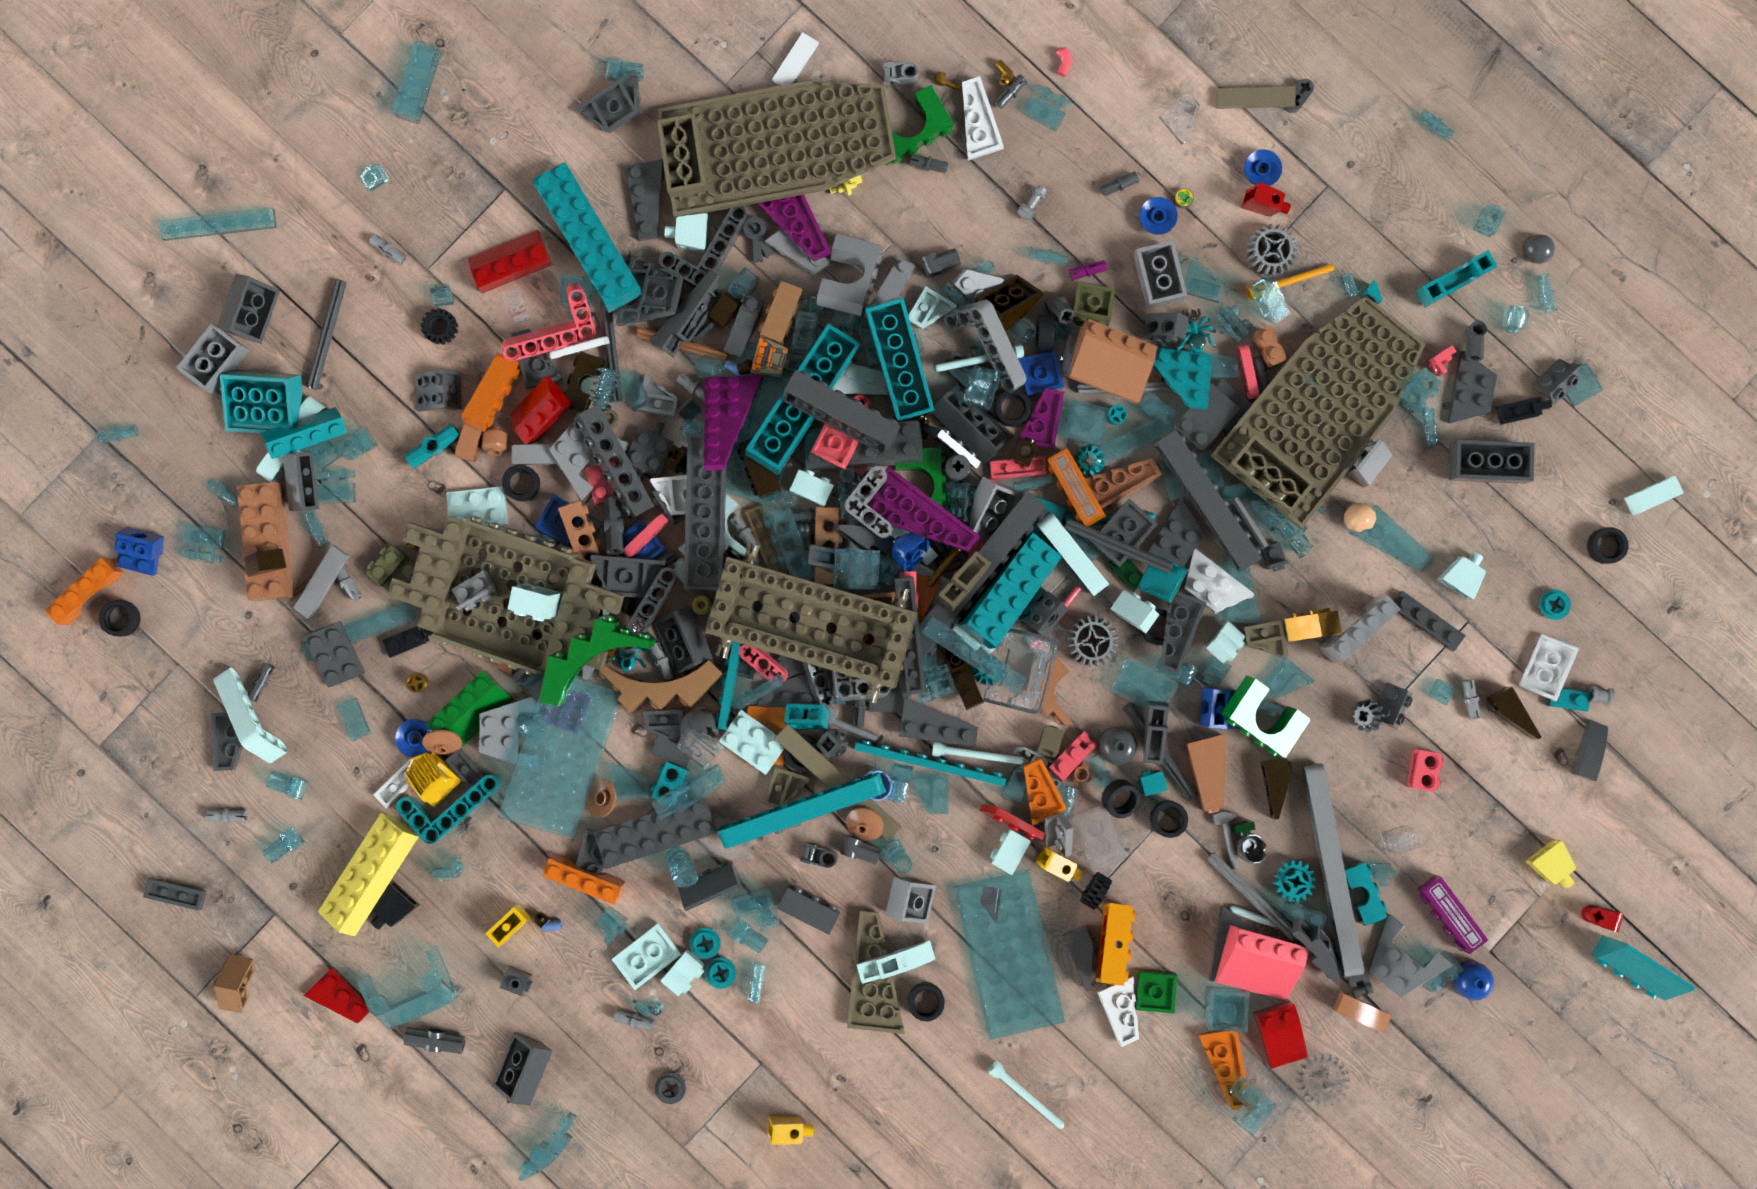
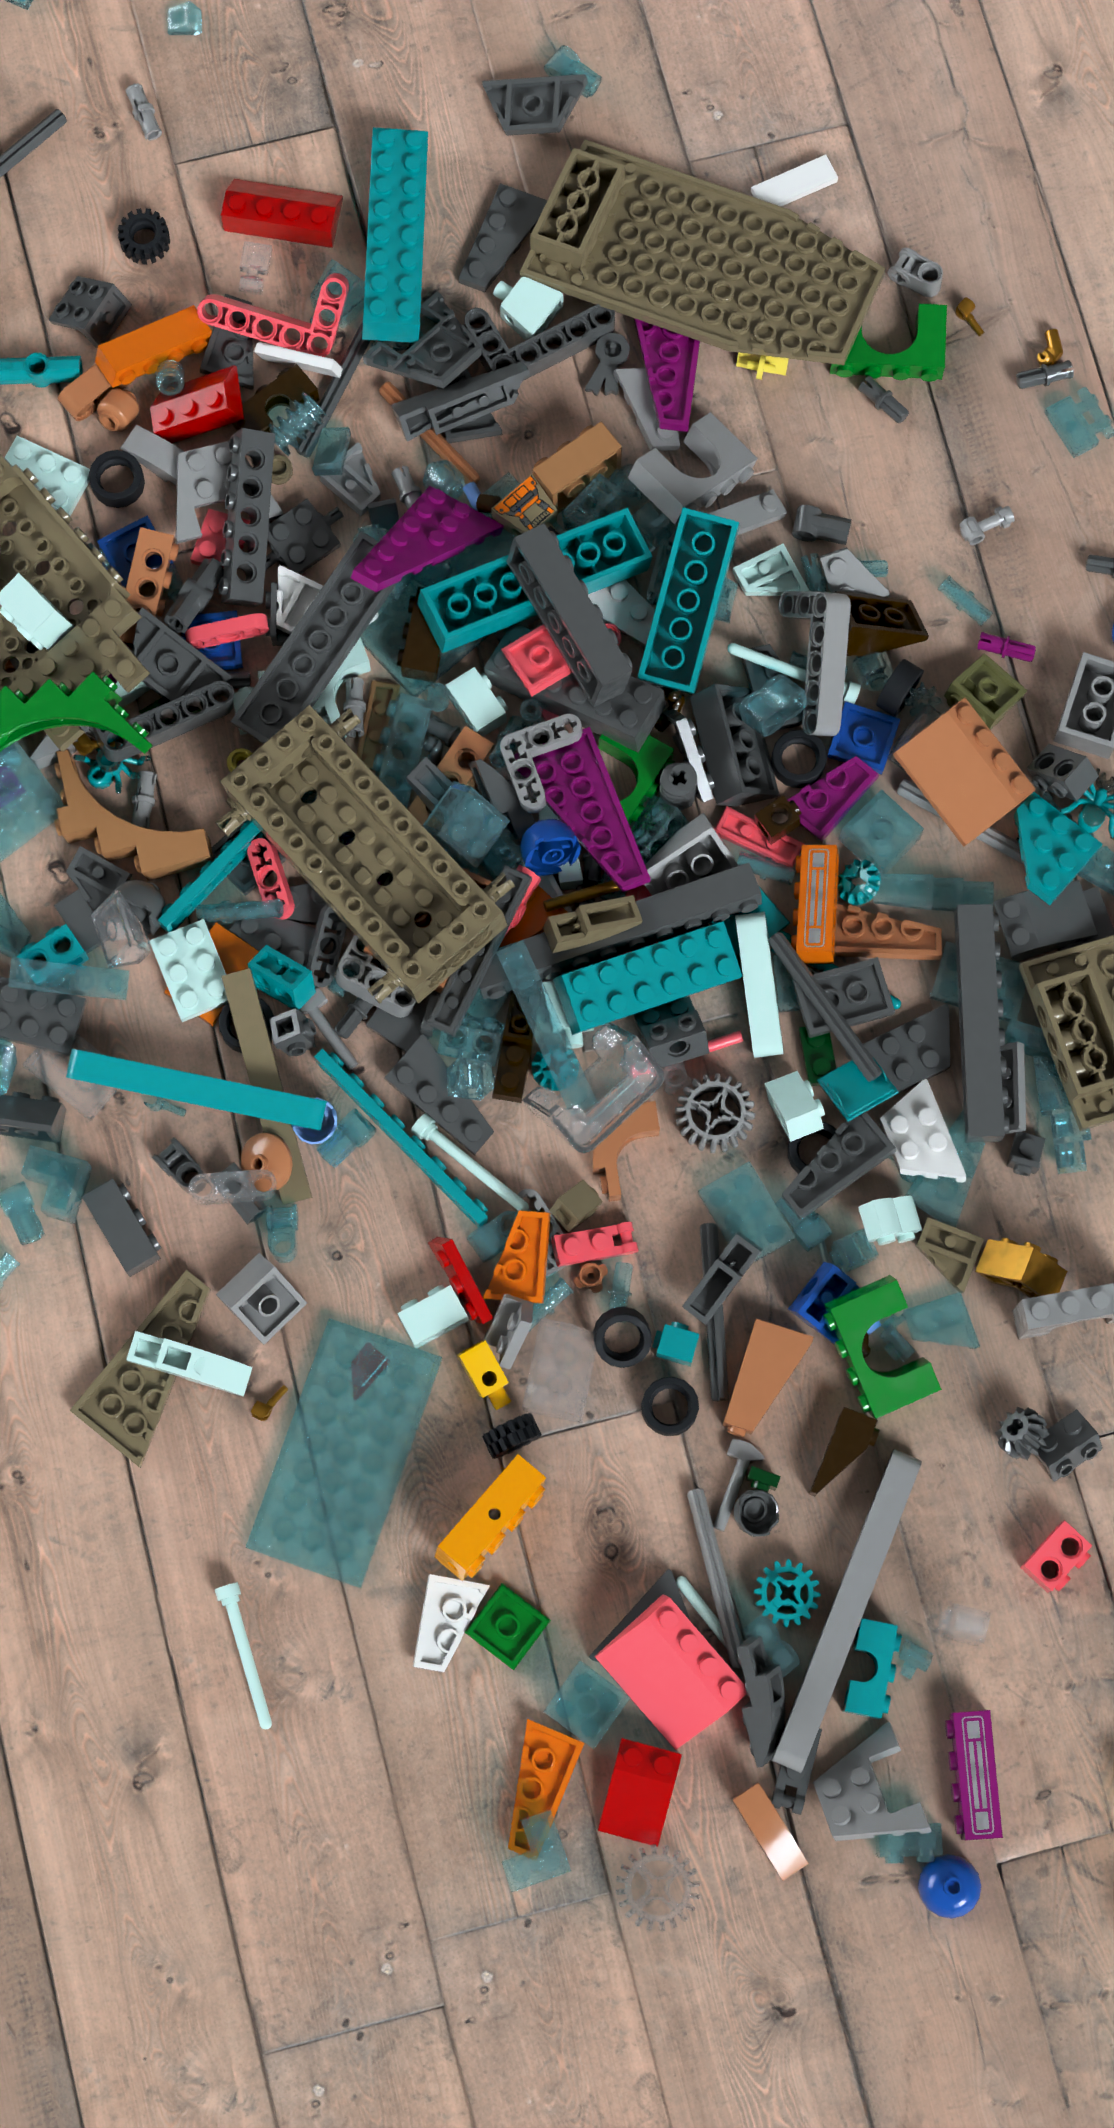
camera: 30 degrees right, 10 degrees down
(442, 295) = (171, 202): clear light blue tile -> none
(514, 406) = (170, 385): none -> clear light blue brick
(677, 459) = (326, 562): dark brown brick -> none
(682, 640) = (188, 788): dark grey slope -> none
(724, 309) = (511, 421): dark brown slope -> none
(743, 283) = (553, 405): clear light blue brick -> none
(744, 325) = (520, 453): dark grey slope -> none
(784, 786) = (195, 1051): dark tan wing -> none
(867, 849) = (218, 1181): none -> clear beam
(926, 1016) = (172, 1439): black tyre -> none
(933, 792) = (382, 1180): clear light blue wing -> none
(947, 708) = (470, 1078): none -> clear light blue brick
(950, 959) = (262, 1411): none -> pearl gold hand
(980, 125) = (978, 396): white wing -> none
(1060, 309) = (938, 670): dark grey piece -> none
(1081, 951) = (442, 1505): dark grey slope -> none
(1117, 745) = (662, 1270): dark grey cylinder -> none
(1119, 412) = (931, 841): teal wheel -> none
(1154, 407) = (984, 865): clear light blue piece -> none

